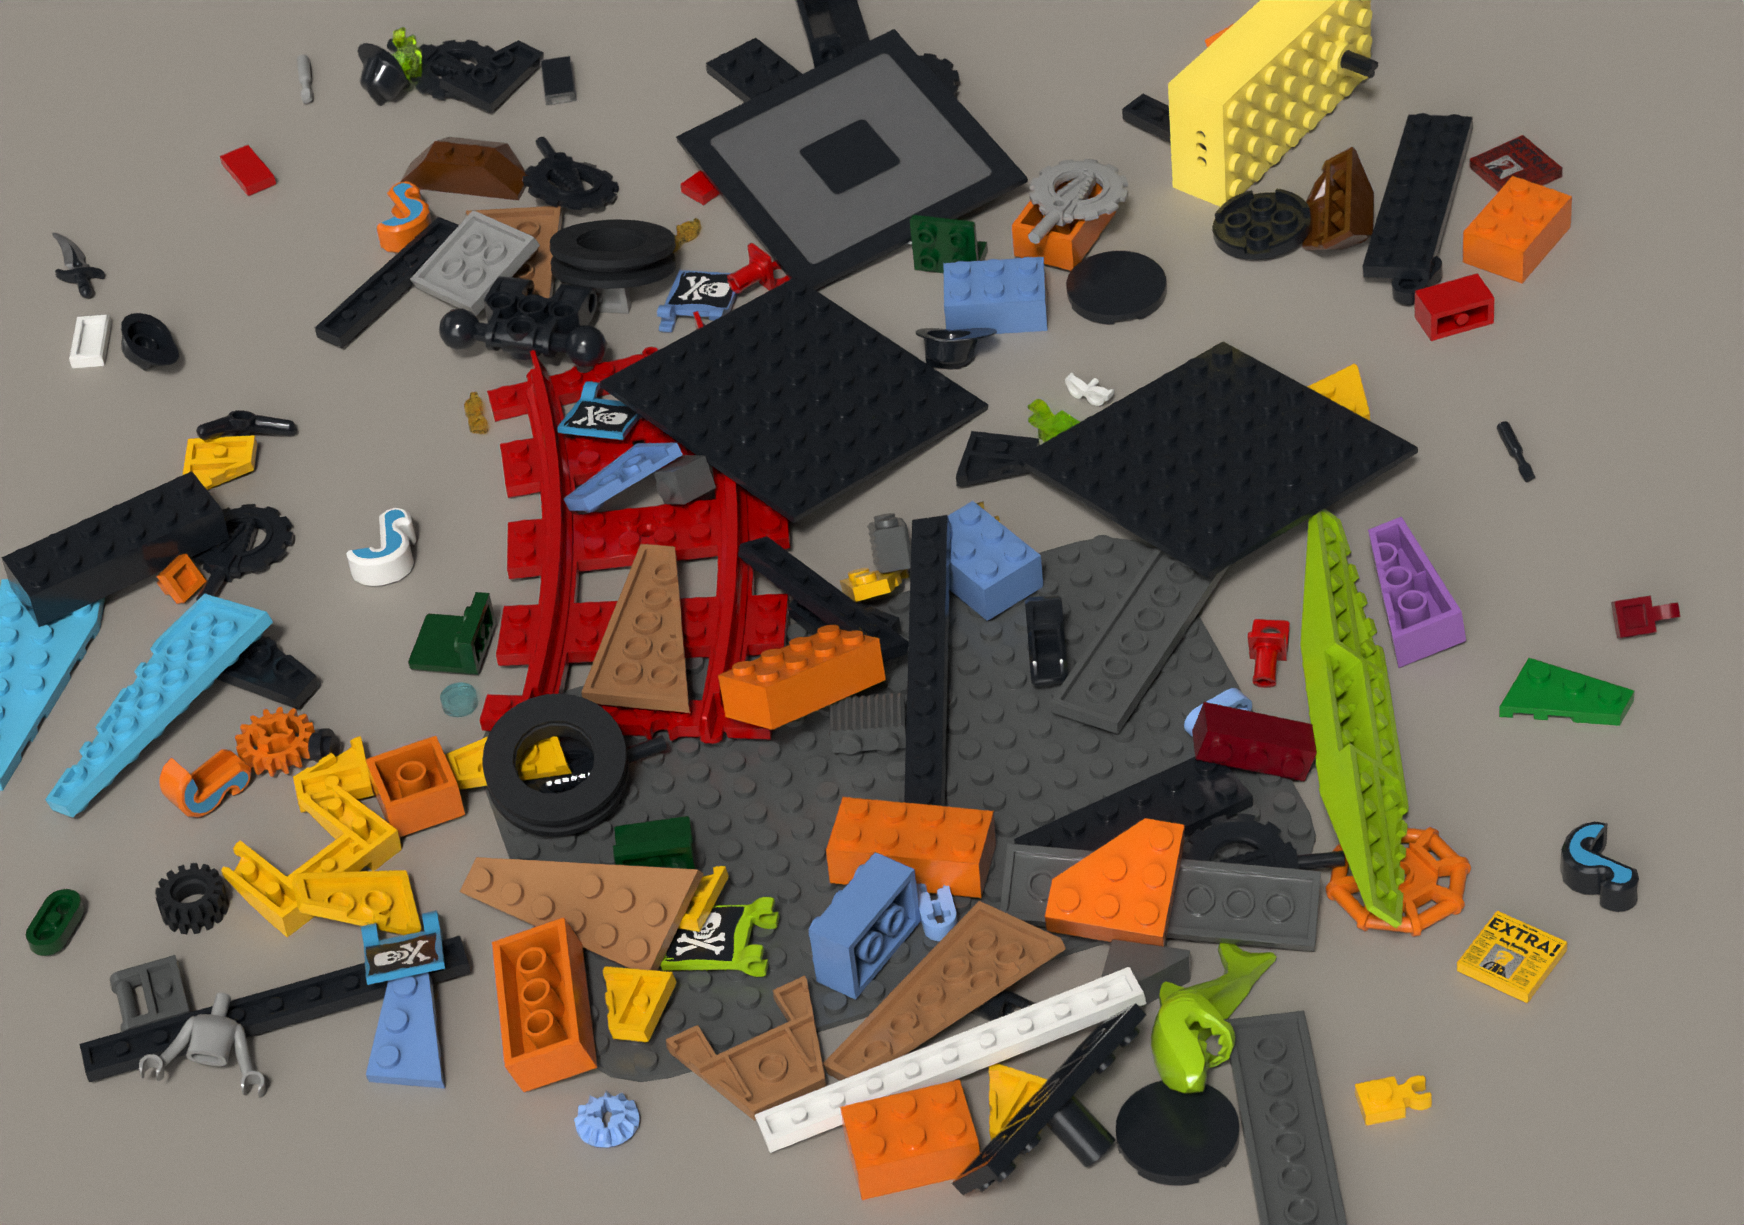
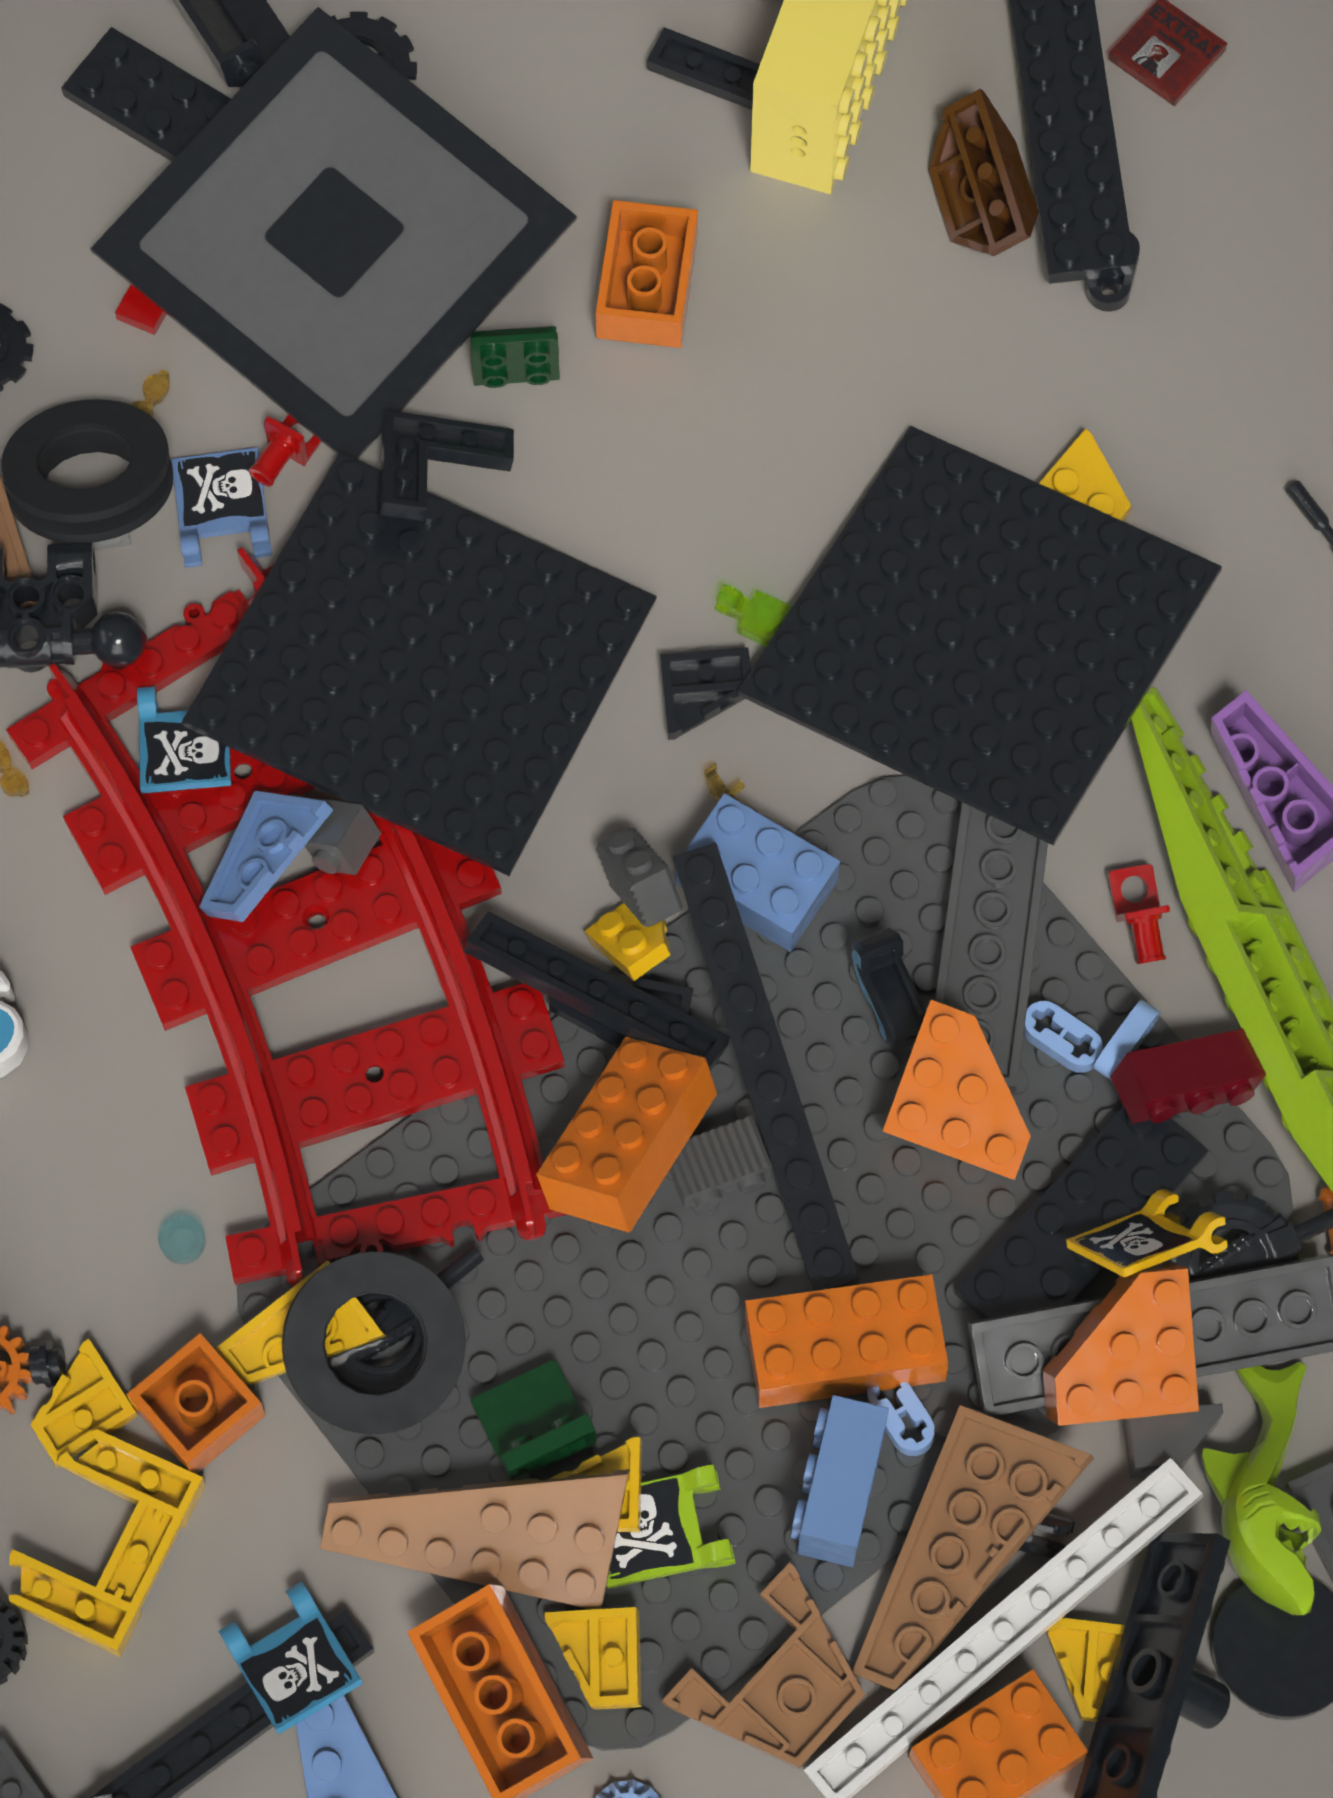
camera: 25 degrees left, 25 degrees up
(359, 898) = (202, 1593): yellow wing -> none
(454, 641) = (137, 1152): dark green bracket -> none
(643, 646) = (403, 1130): medium nougat wing -> none
(844, 278) = (415, 439): none -> black plate
(951, 347) = (584, 513): black piece -> none
(996, 295) = (605, 422): medium blue brick -> none
(1063, 711) = (957, 1096): none -> orange brick
(1072, 200) = (656, 269): light grey bar -> none
(1094, 394) = (782, 551): white piece -> none
(1116, 287) = (745, 363): black tile -> none
(1163, 710) = (1068, 1028): none -> light blue beam
(1189, 820) = (1148, 1237): none -> flag
(1261, 224) = (890, 218): black tile -> none
(1454, 307) = (1175, 309): red brick -> none
(1517, 229) = (1210, 164): orange brick -> none

